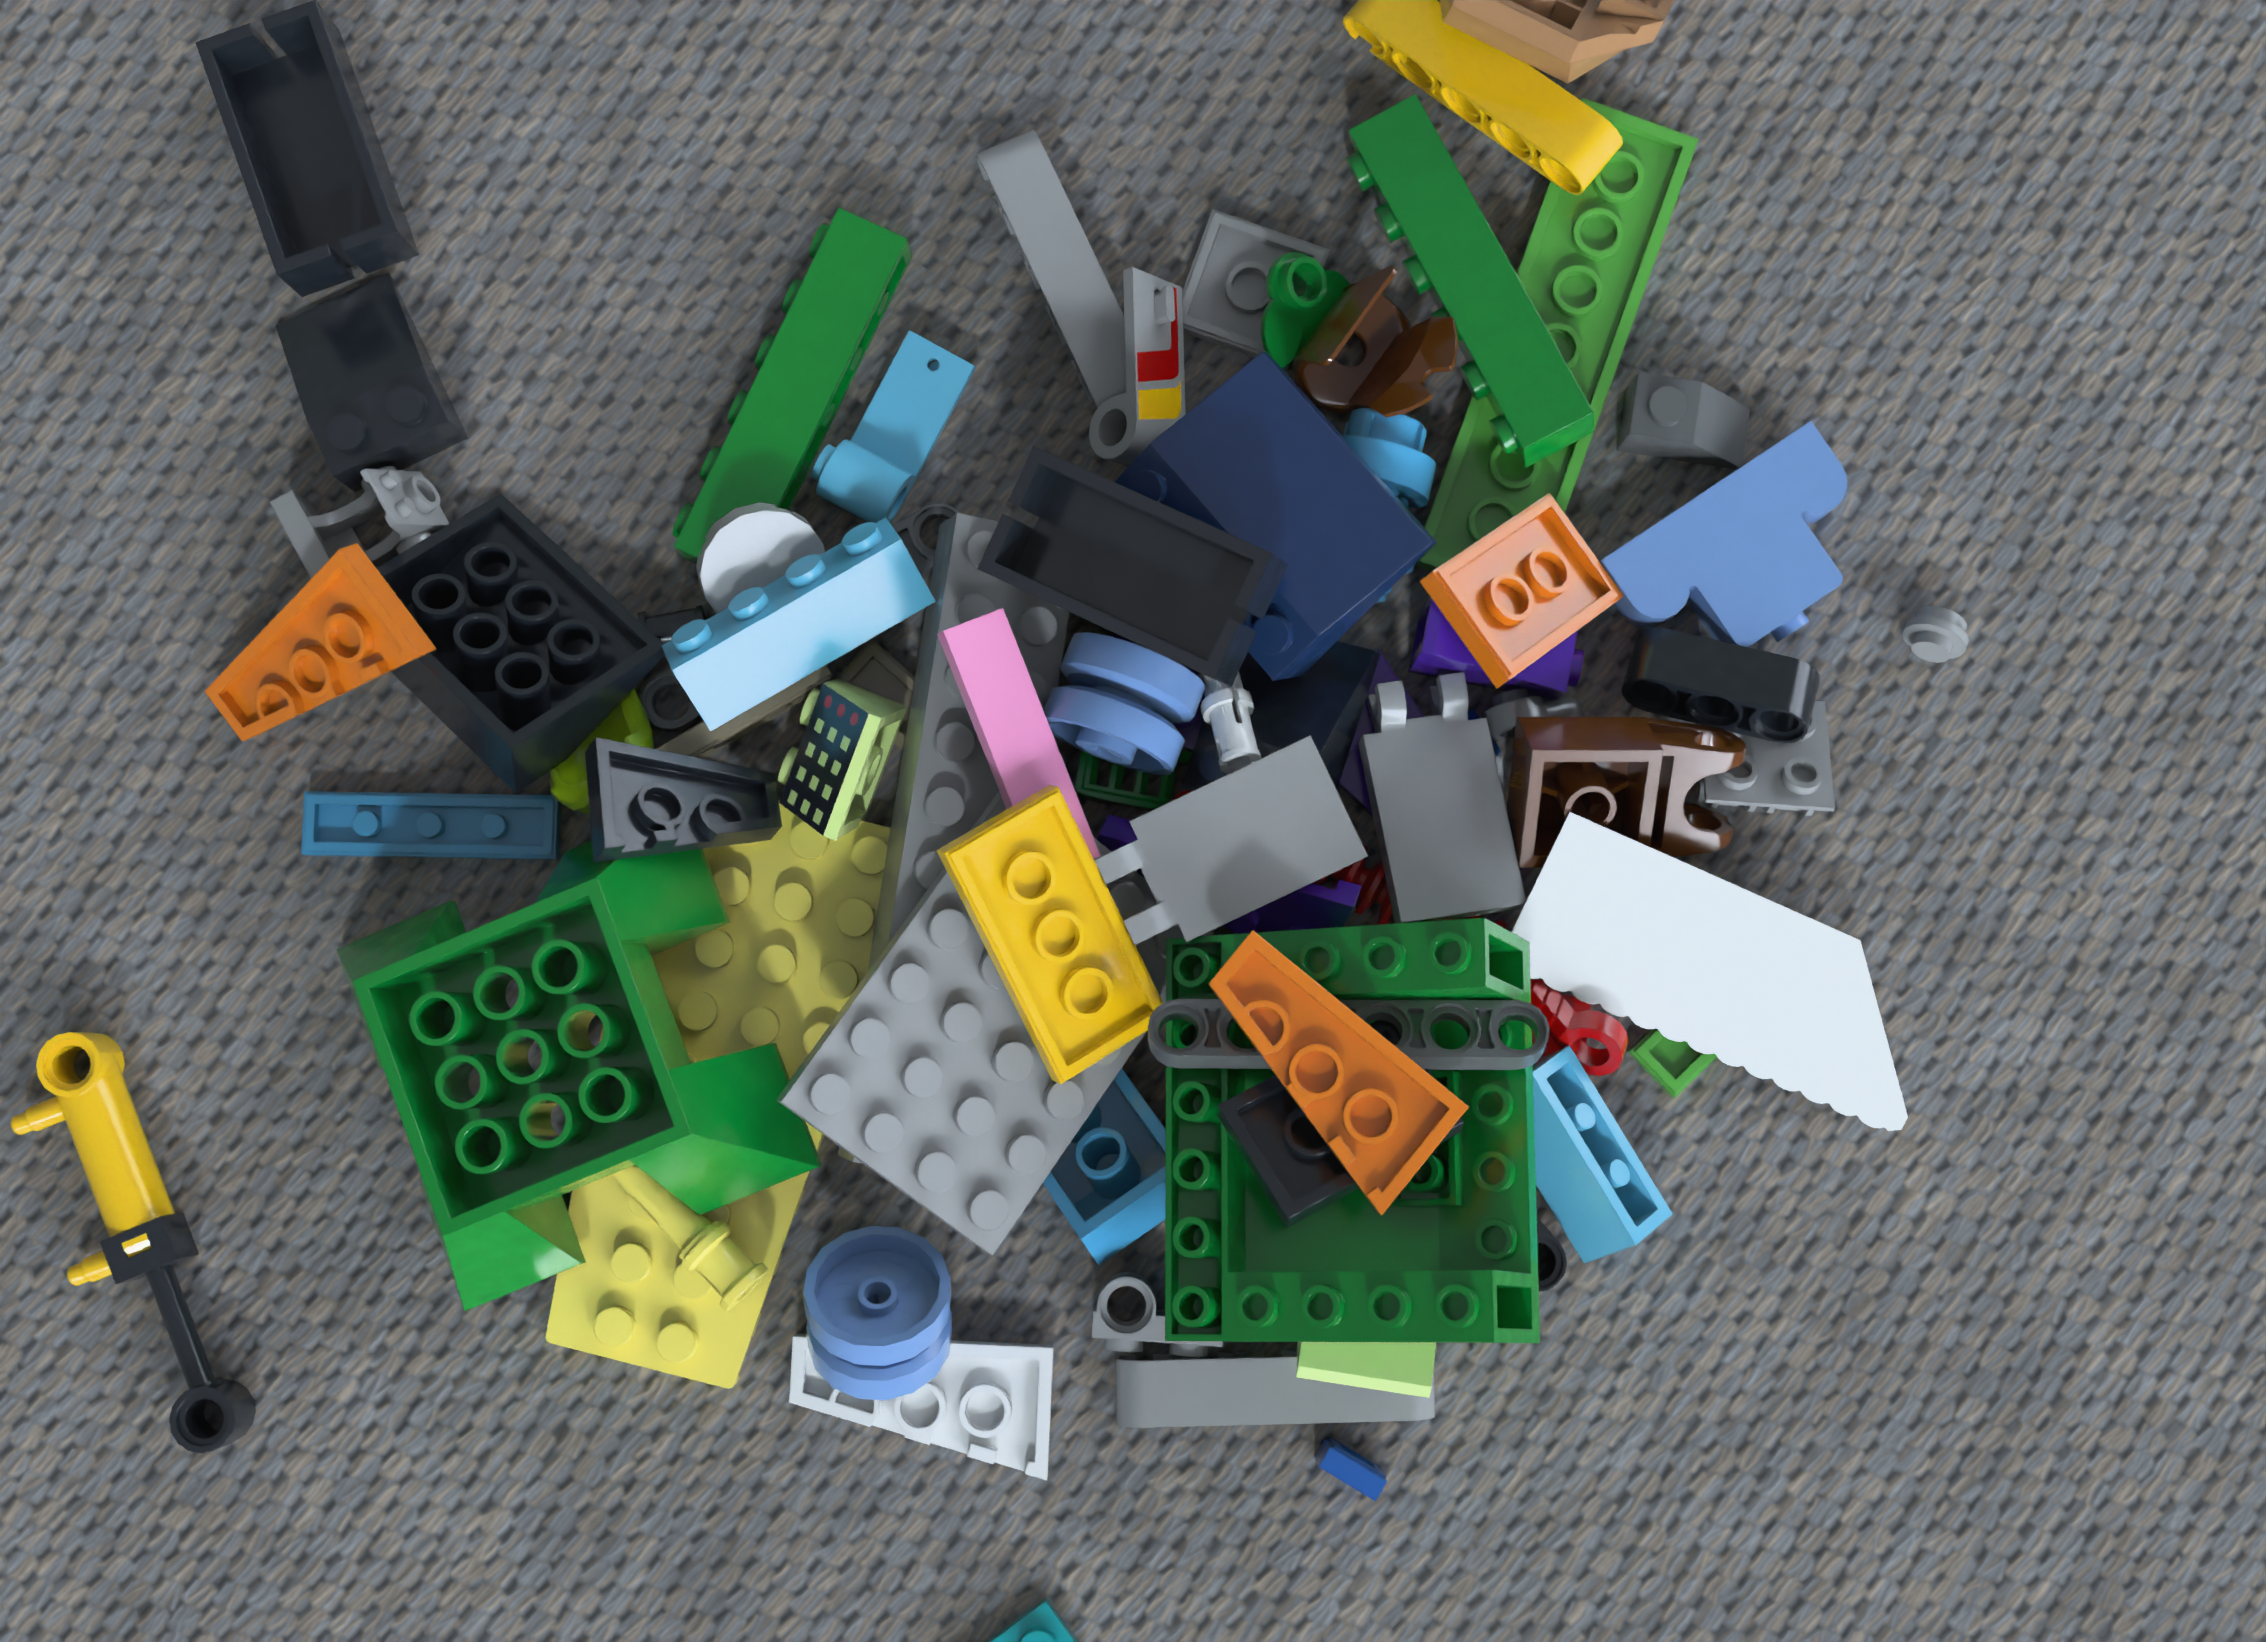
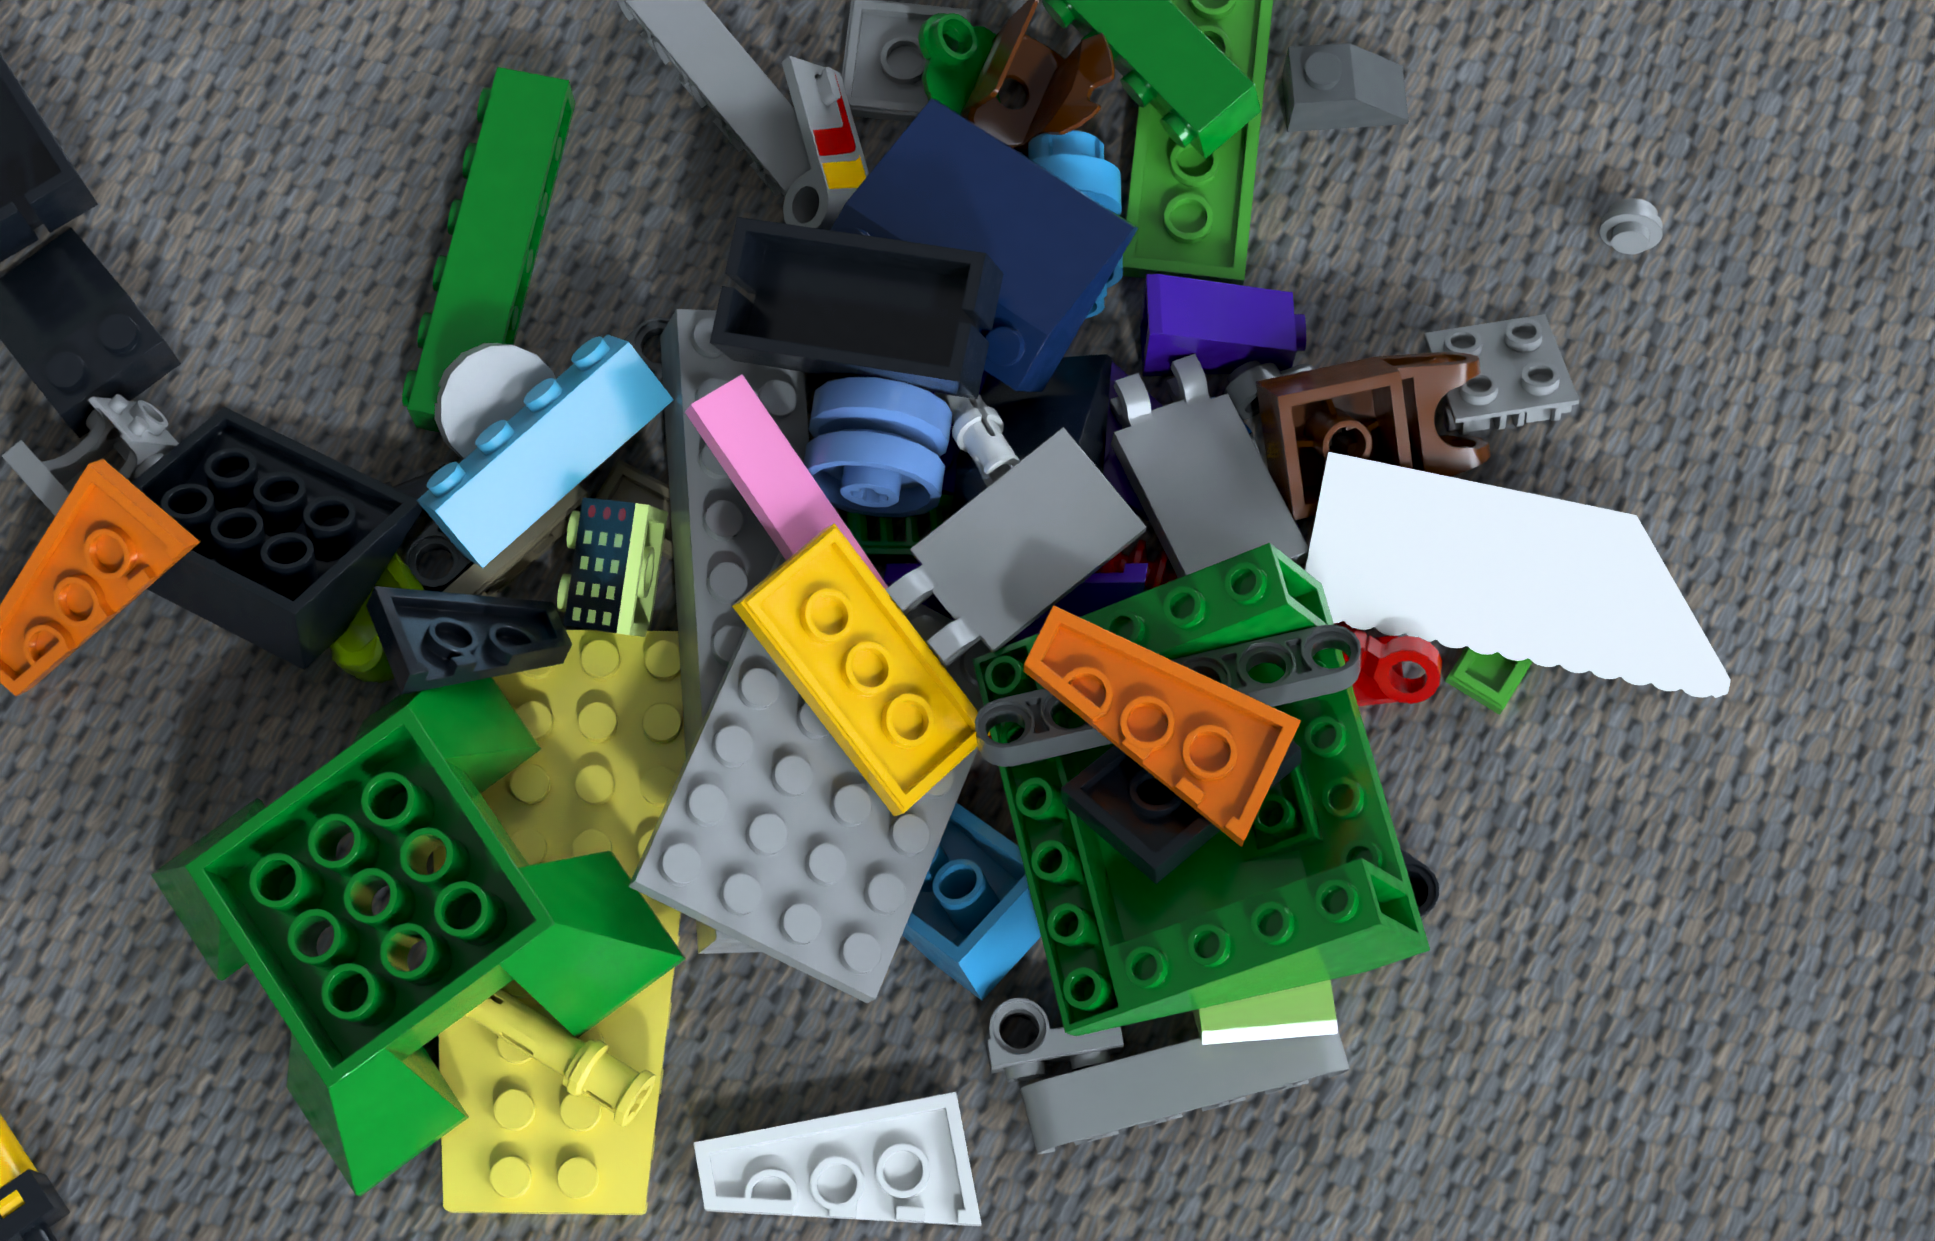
camera: 15 degrees left, 10 degrees down
(431, 825) = (221, 735): dark azure tile -> none
(878, 1312) = (774, 1088): medium blue wheel -> none
(896, 433) = (596, 262): medium azure door -> none
(1351, 1468) = (1280, 1139): blue tile -> none
(1521, 589) = (1230, 261): orange tile -> none
(1588, 1164) = (1433, 785): medium azure brick -> none
(1721, 685) = (1441, 313): black beam -> none
(1740, 548) = (1423, 191): medium blue brick -> none

